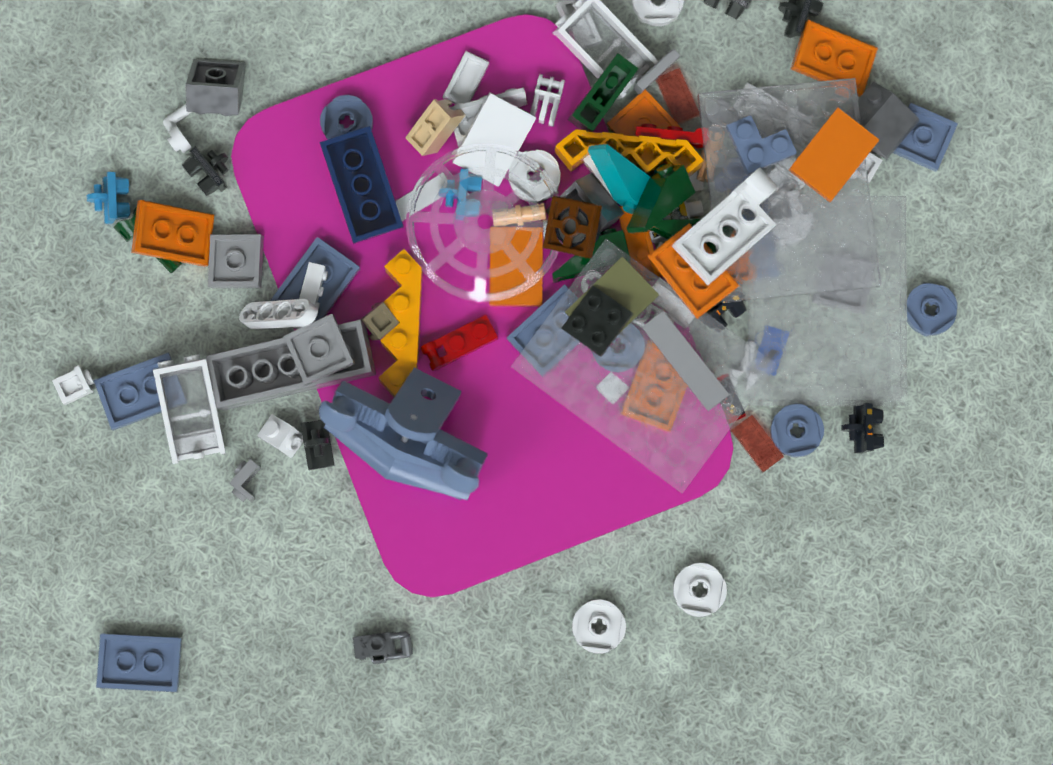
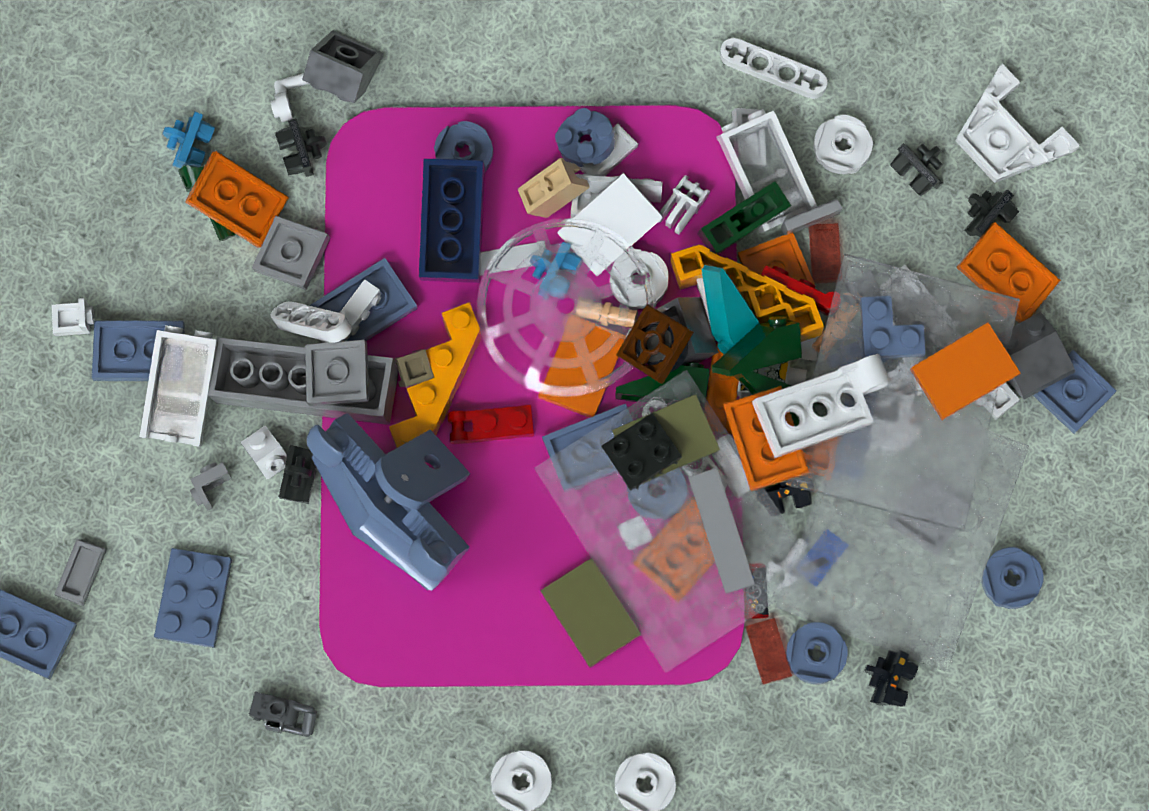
camera: 25 degrees right, 5 degrees down
(166, 593) = (80, 572): none -> light grey tile
(269, 579) = (193, 598): none -> sand blue plate
(450, 85) = (581, 124): none -> sand blue plate
(601, 467) = (590, 613): none -> olive tile

